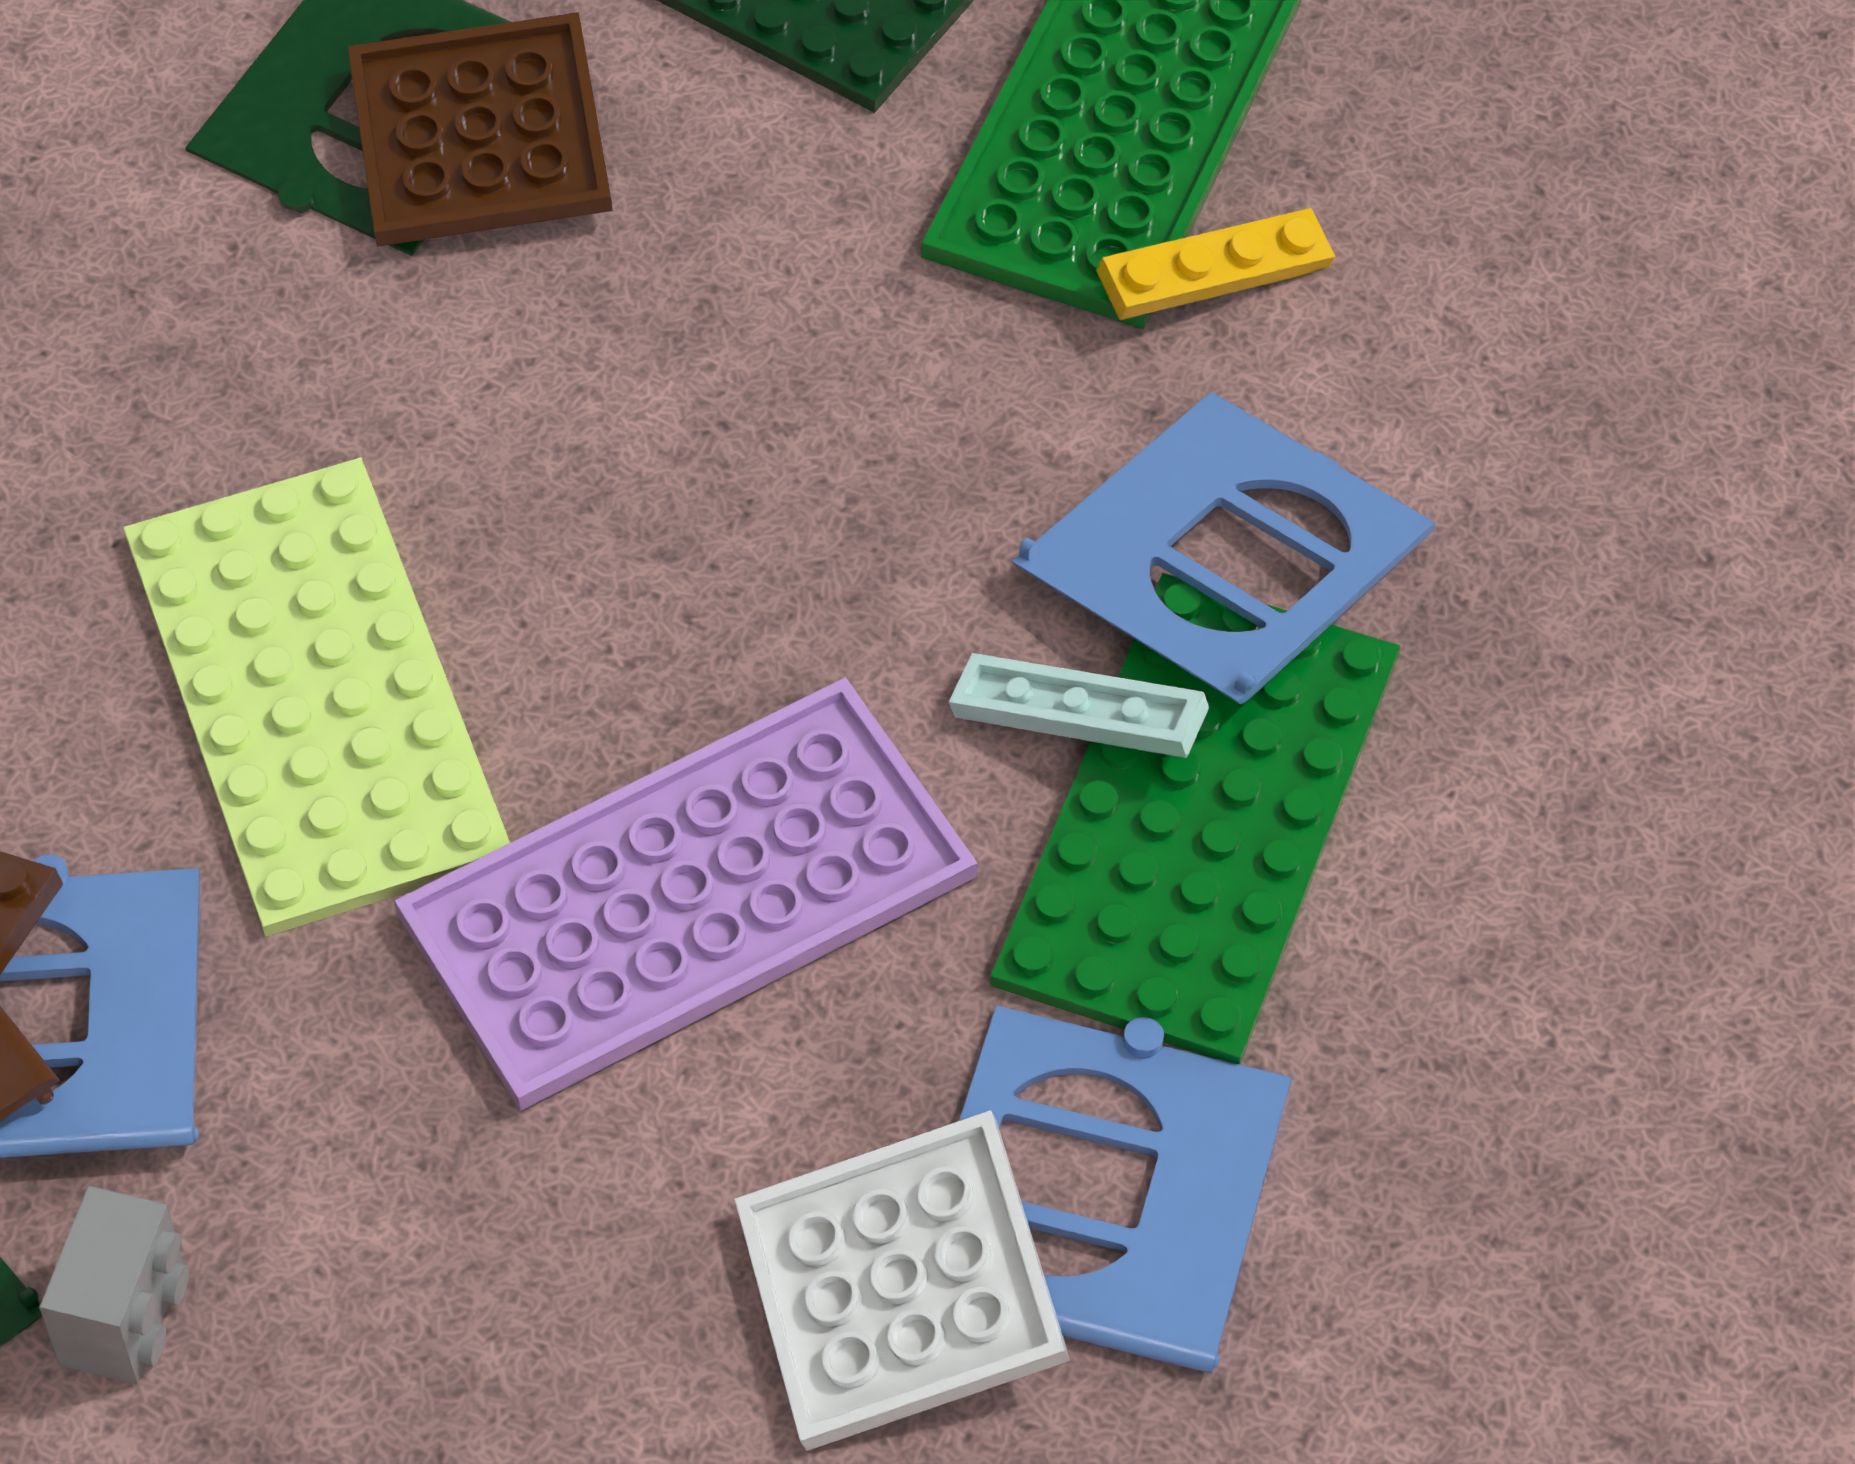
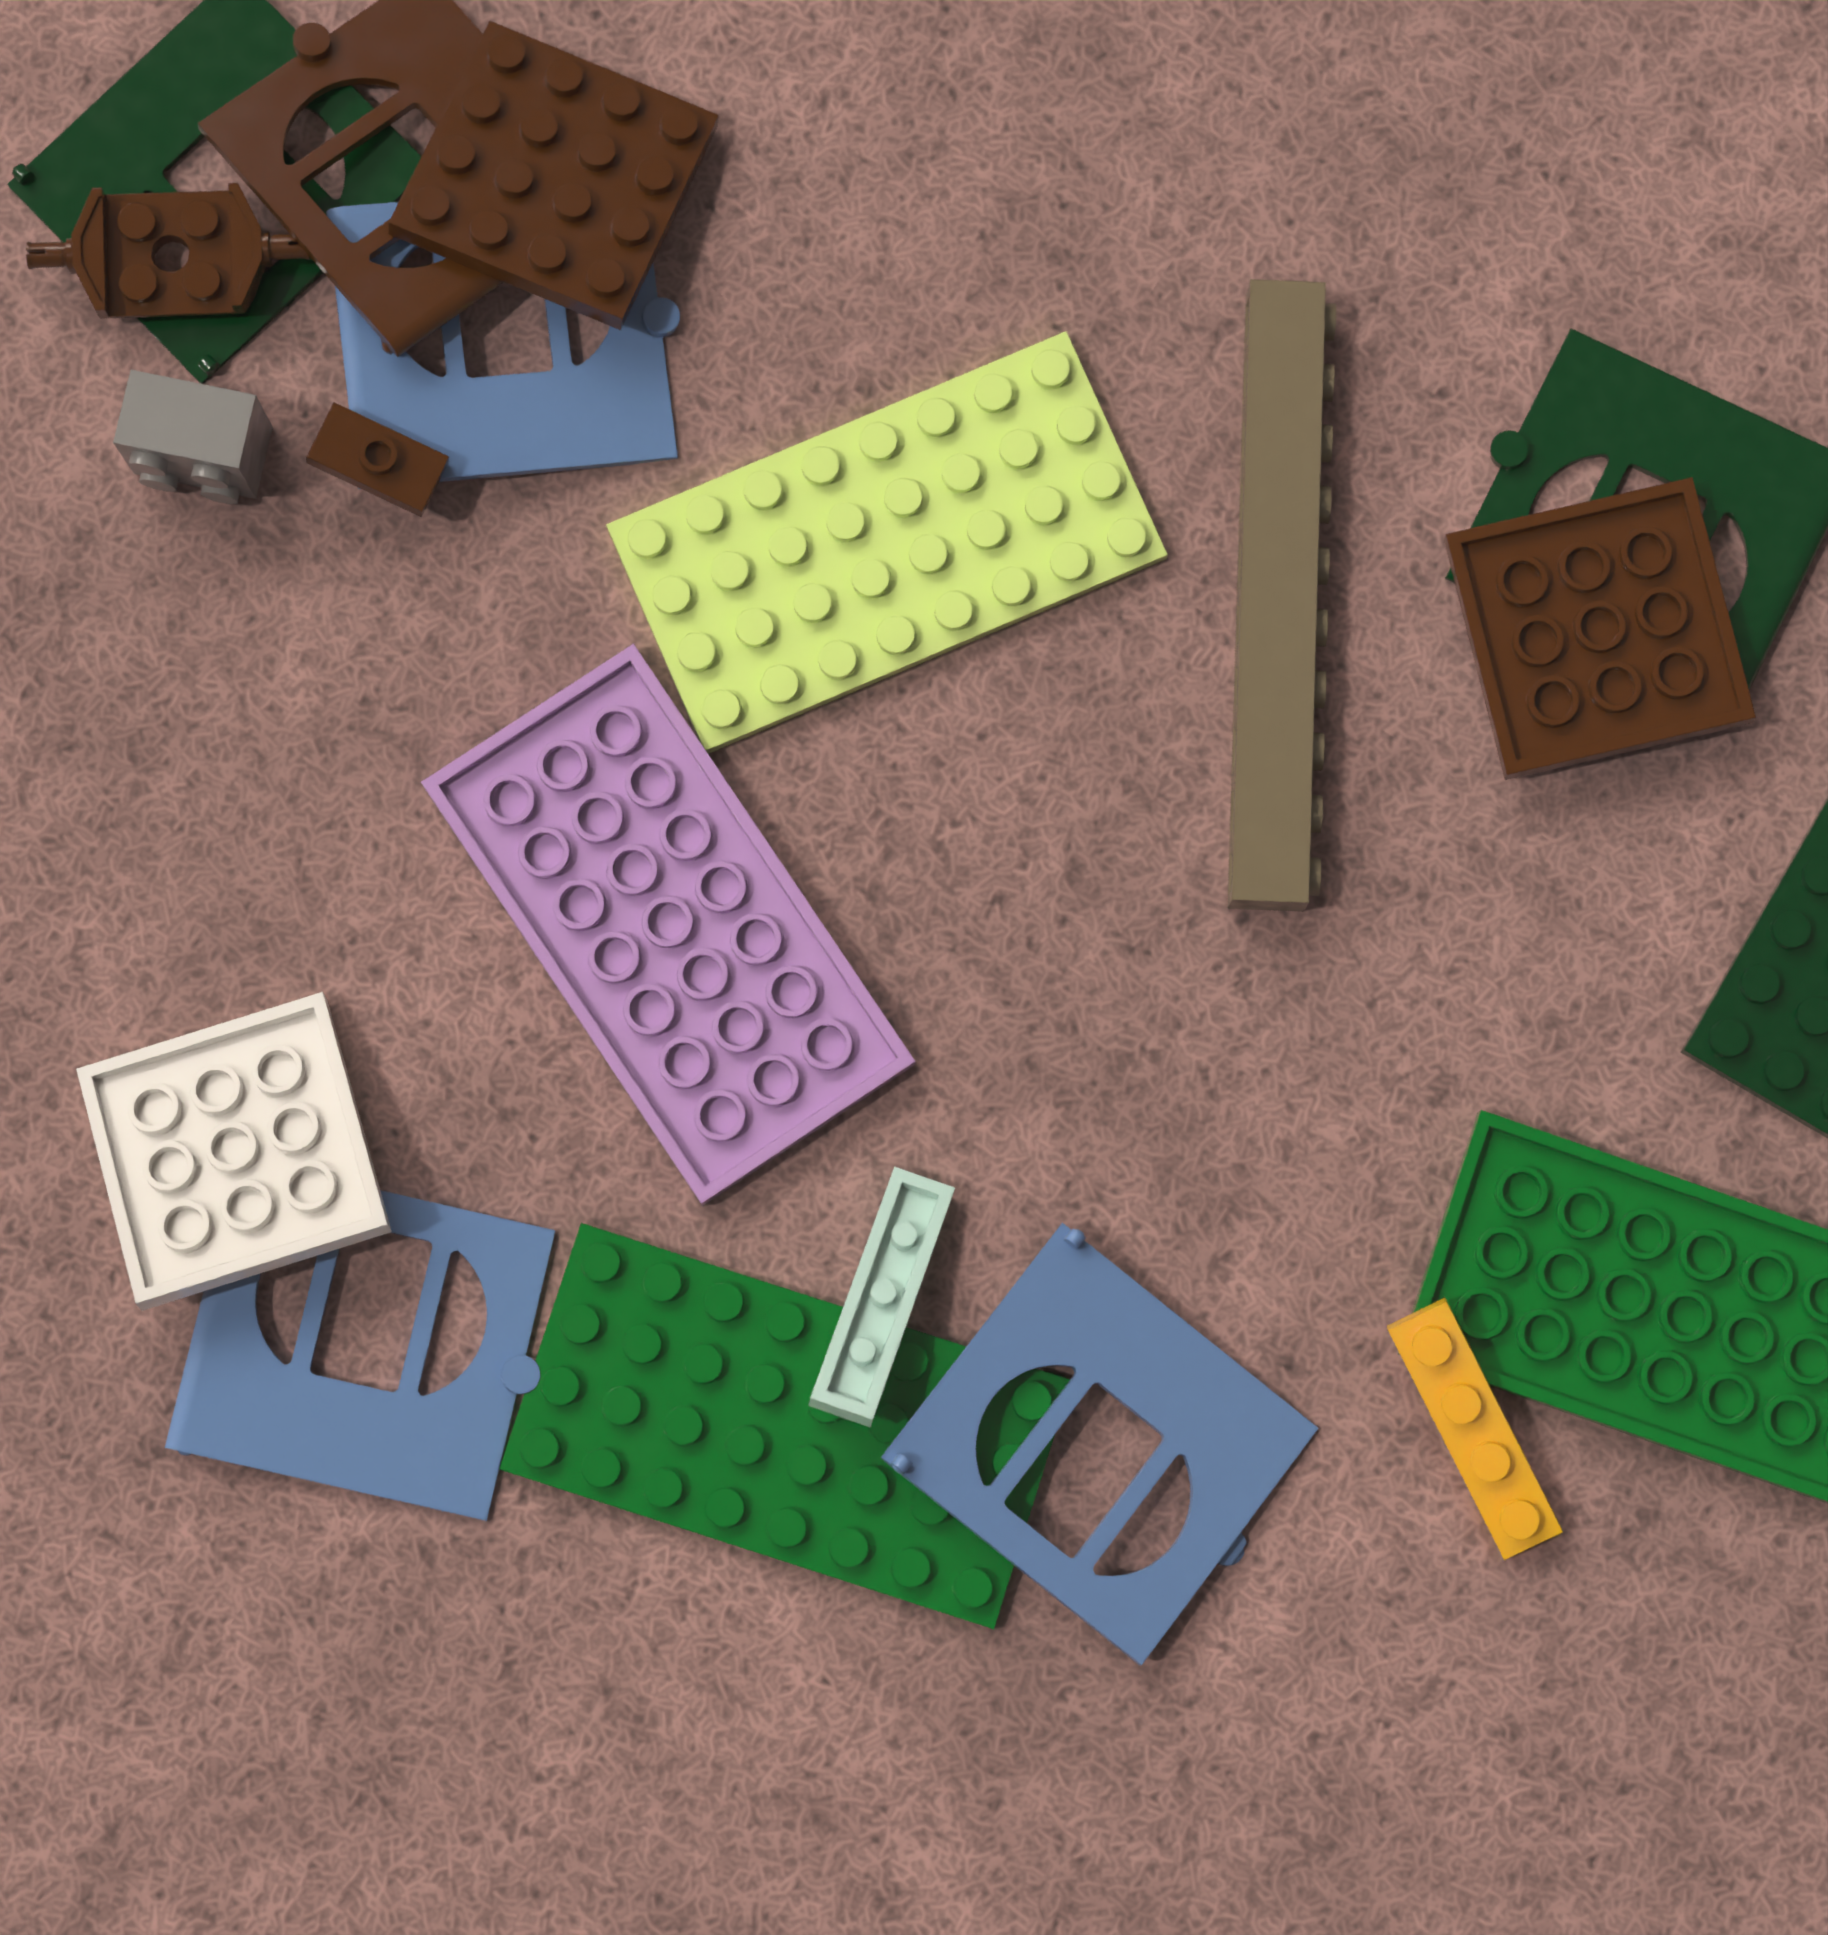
camera: 85 degrees right, 25 degrees up
(167, 1110) = (377, 459): none -> reddish brown plate
(413, 369) = (1278, 596): none -> dark tan brick

